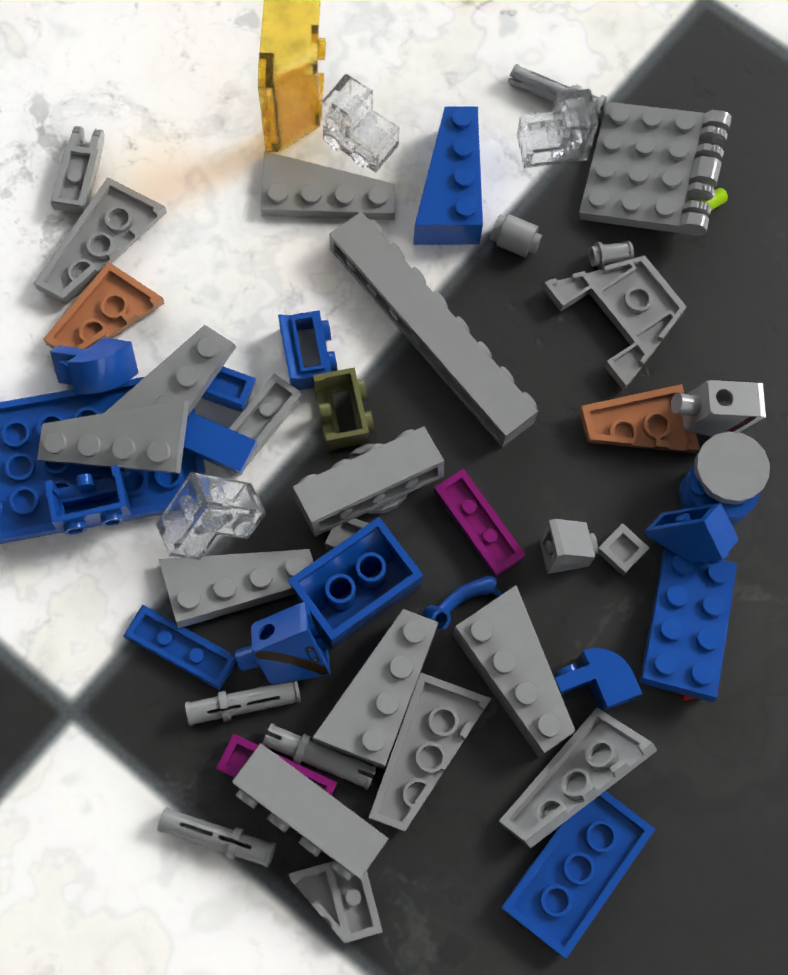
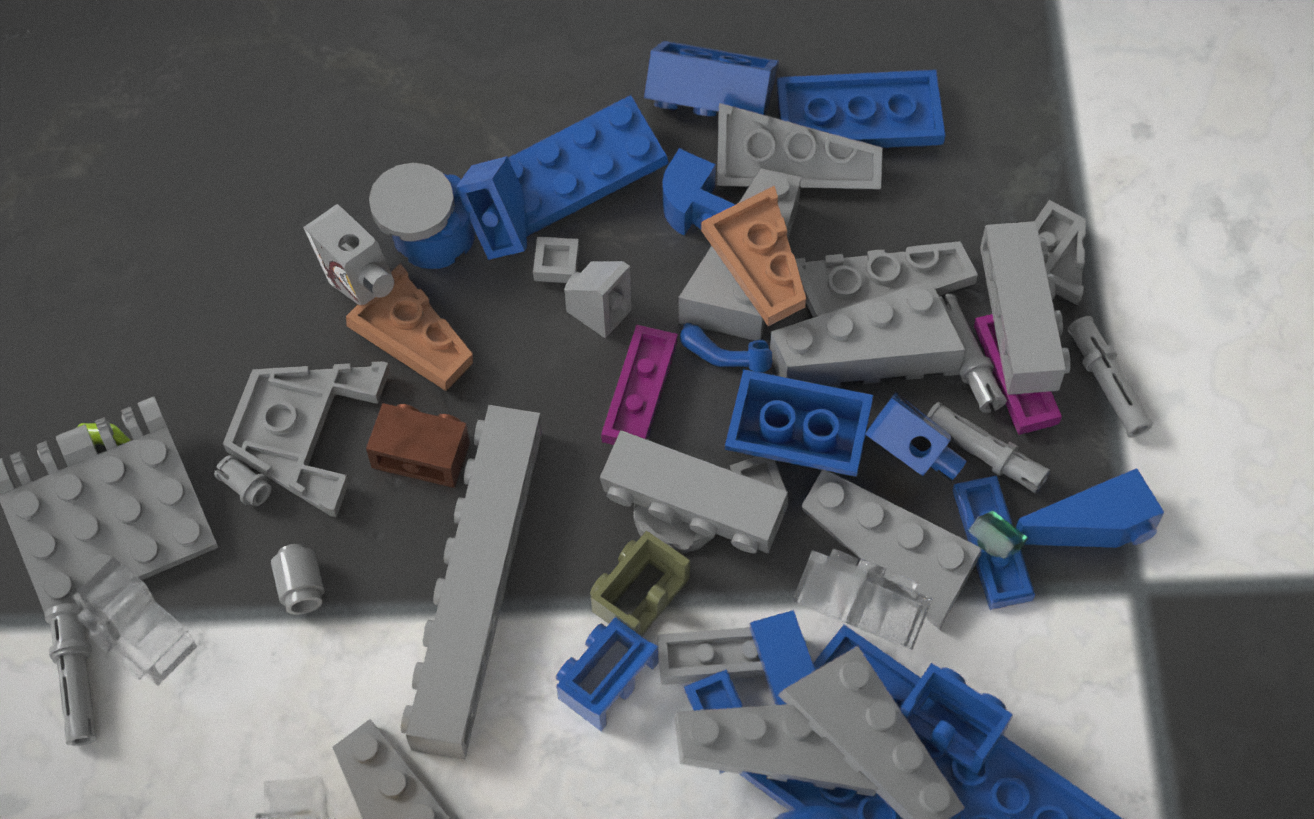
camera: 125 degrees left, 10 degrees down
(128, 727) = (1098, 517): none -> blue slope
(173, 639) = (997, 535): none -> plate
(452, 191) = (281, 685): blue wedge -> none
(498, 652) = (758, 254): none -> nougat wing
(550, 361) = (418, 444): none -> copper brick
(694, 782) = (708, 77): none -> blue slope

